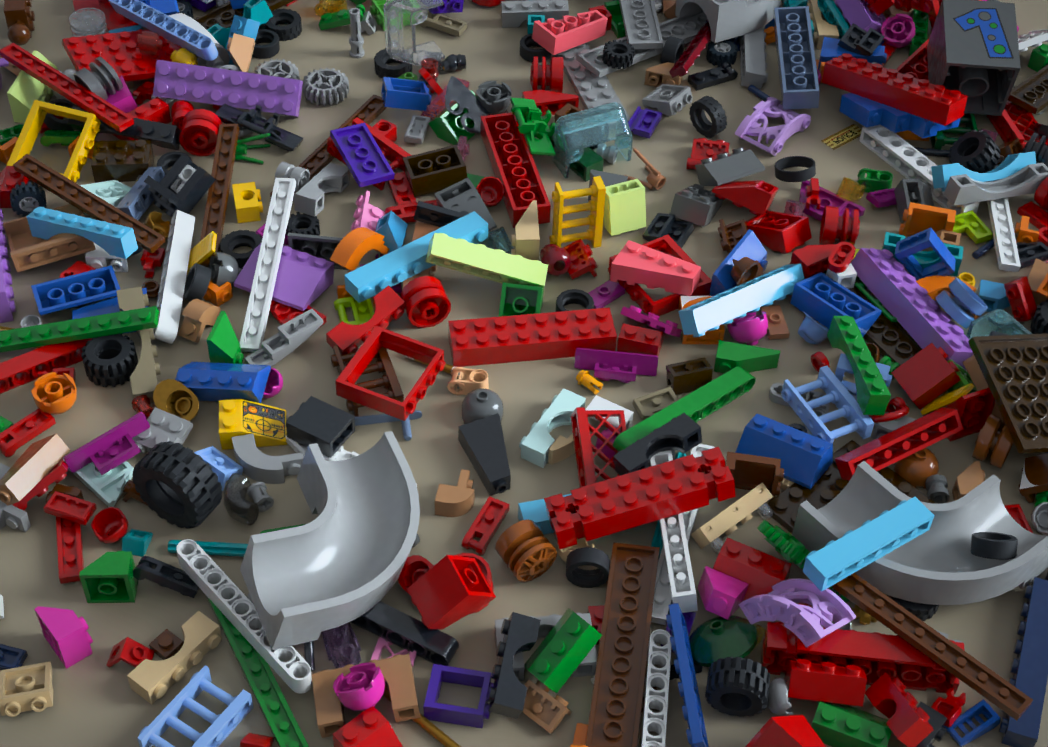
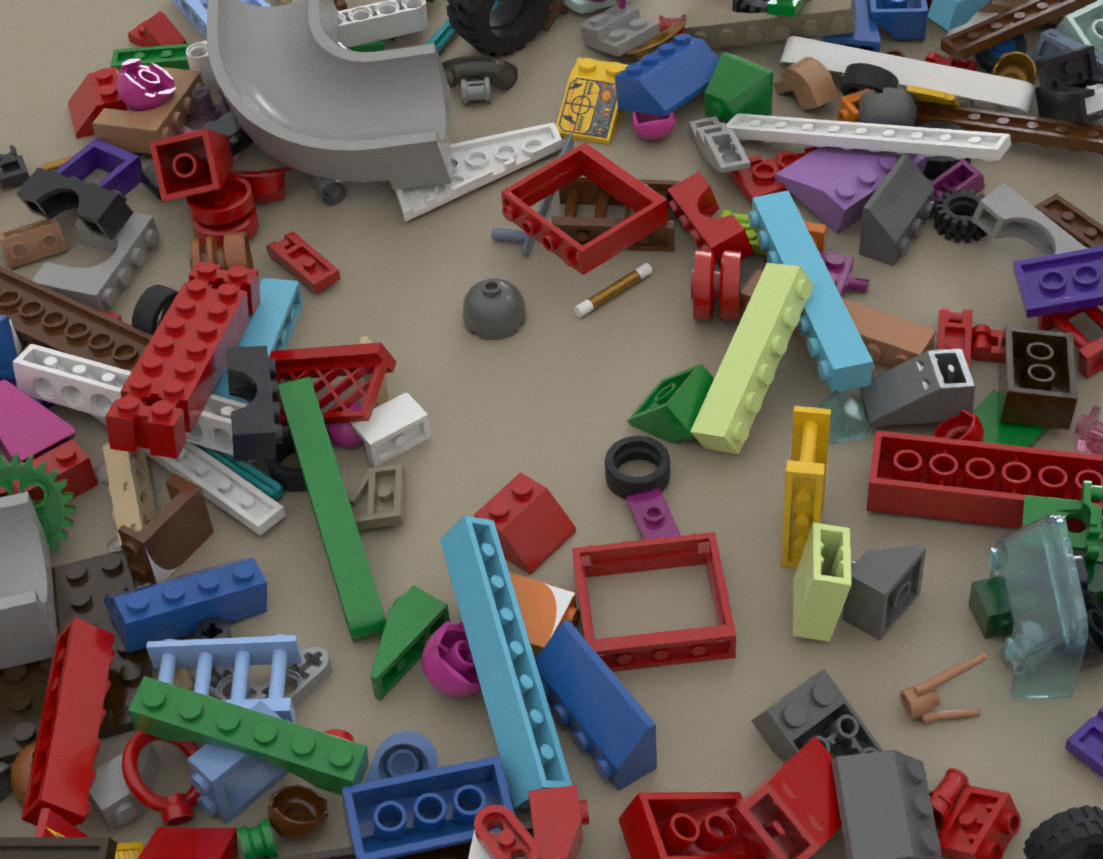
camera: 120 degrees right, 0 degrees up
(220, 464) = (545, 65): light blue bracket -> none
(246, 202) = (1045, 168): yellow brick -> none
(262, 466) = (526, 95): light grey arch -> none
(288, 170) = (1068, 202): light grey wheel -> none
(320, 424) = (536, 137): black brick -> none
(356, 245) = (862, 230): orange arch -> none
(366, 214) = (950, 287): bright pink bracket -> none
(393, 229) = (901, 294): dark azure slope -> none
(436, 215) = (893, 335): black plate -> none
(455, 500) = (363, 243): medium nougat brick -> none
(467, 380) = (550, 308): light nougat piece -> none
(487, 452) = (409, 290): black slope -> none
(527, 234) = (846, 448): tan slope -> none
(530, 336) = (595, 395): red brick -> none
(537, 443) = (435, 387): light aqua arch -> none
(556, 259) = (746, 464): dark red piece -> none
(562, 650) = (63, 246): green slope -> none
(580, 259) = (745, 513): red bracket -> none
(584, 378) = (476, 436): light orange pin -> none
(615, 364) = (478, 469): magenta bracket -> none
(652, 320) = (546, 544): dark pink wing -> none
(655, 269) = (633, 557): coral wedge -> none
(667, 224) = (767, 667): black slope -> none
(689, 375) = (411, 550): dark brown hinge -> none
(731, 234) = (701, 753): reddish brown bracket -> none
(745, 270) = (558, 671): reddish brown piece -> none
(776, 322) = (462, 732): nougat plate -> none

